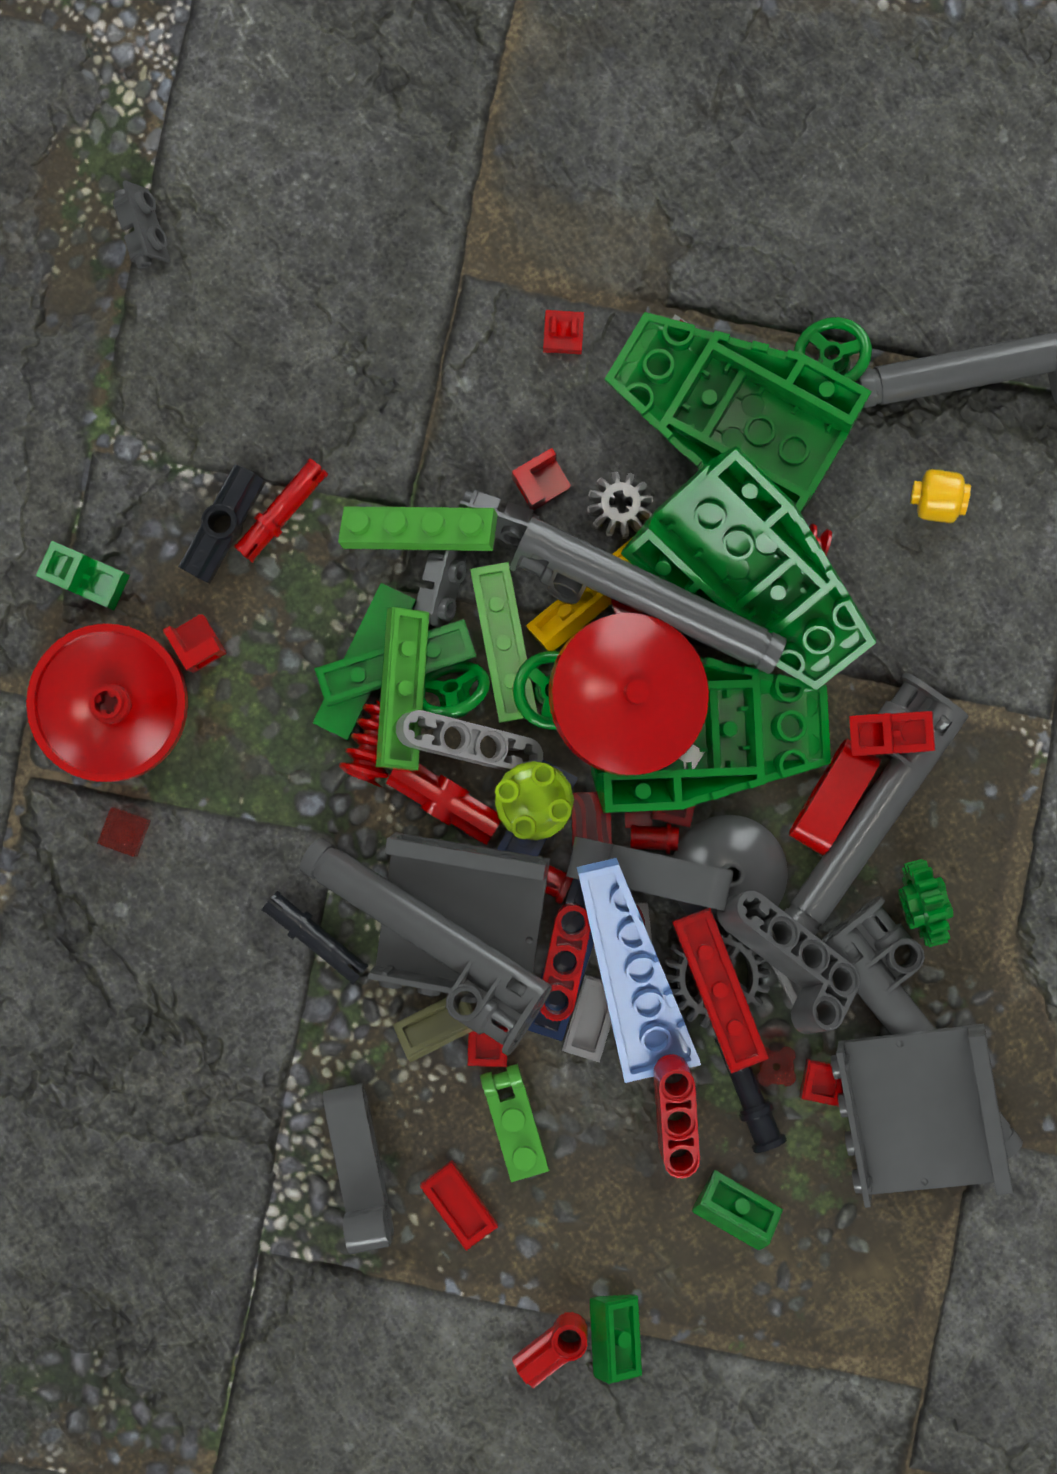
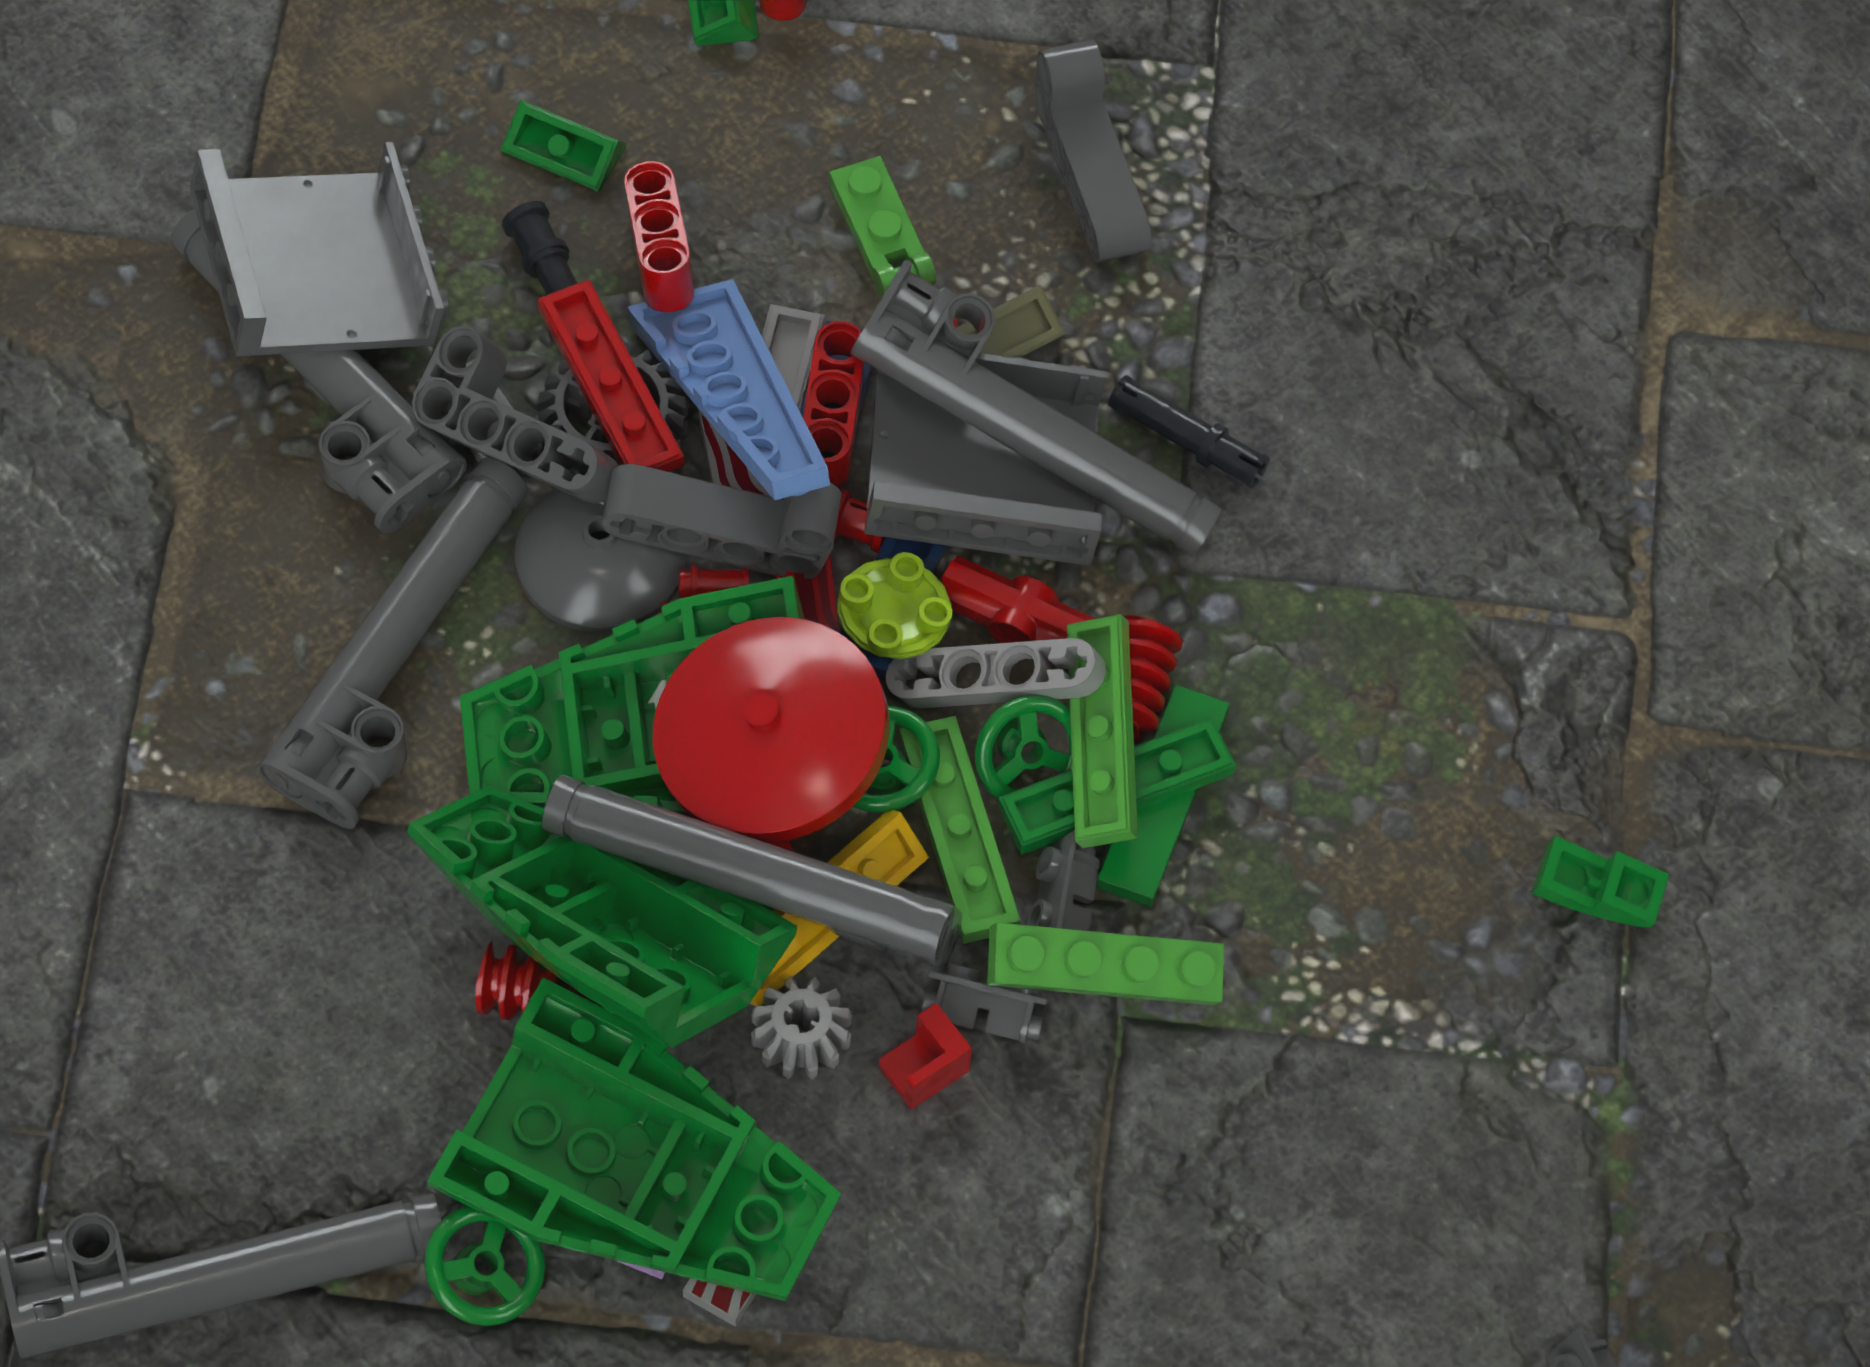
camera: 170 degrees right, 25 degrees down
(107, 703) = (1530, 700): red dish -> none
(124, 831) = (1481, 551): clear red plate -> none
(195, 643) = (1417, 797): red panel -> none
(233, 500) = (1392, 987): black piece -> none
(280, 510) = (1330, 971): red pin -> none
(459, 1205) = (948, 130): red tile -> none
(563, 332) = (910, 1287): red tile -> none
(785, 1074) = (518, 301): clear red plate -> none
(819, 1083) = (463, 298): red tile -> none
(833, 798) = (452, 653): red beam -> none
(892, 733) = (380, 720): red slope -> none
(925, 903) = (319, 508): green gear -> none
(941, 496) = (305, 1072): yellow head -> none

